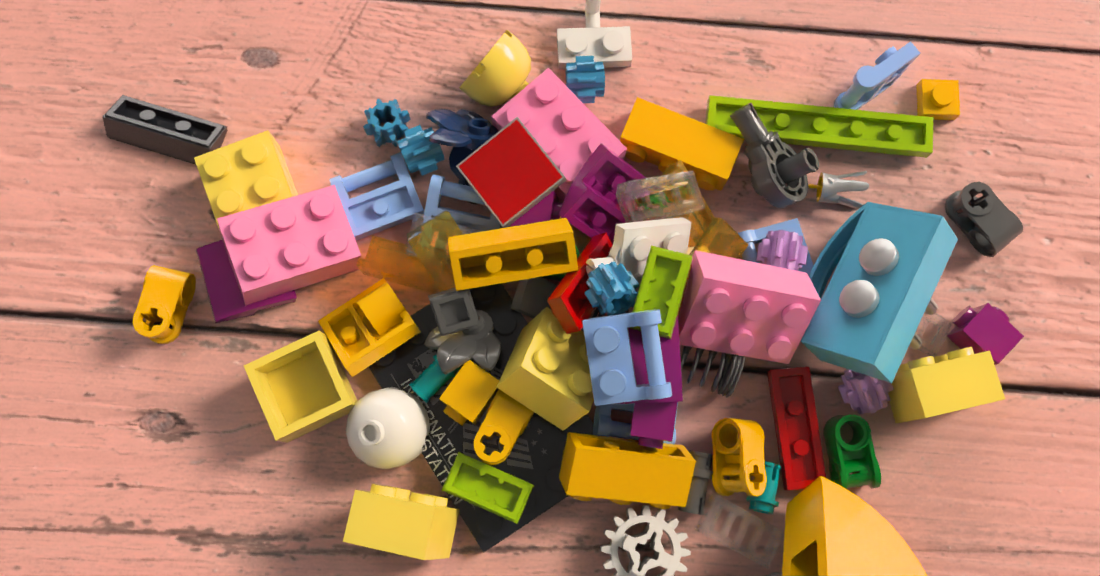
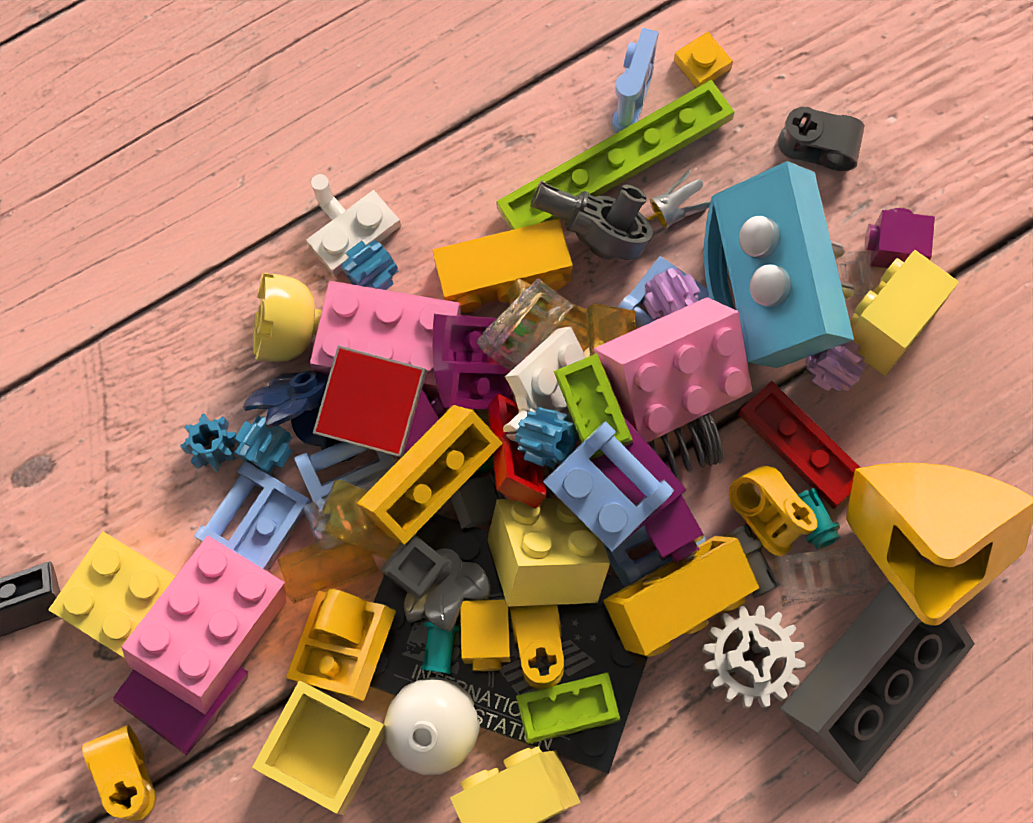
camera: 30 degrees left, 5 degrees down
(851, 456) = (870, 433): green piece -> none

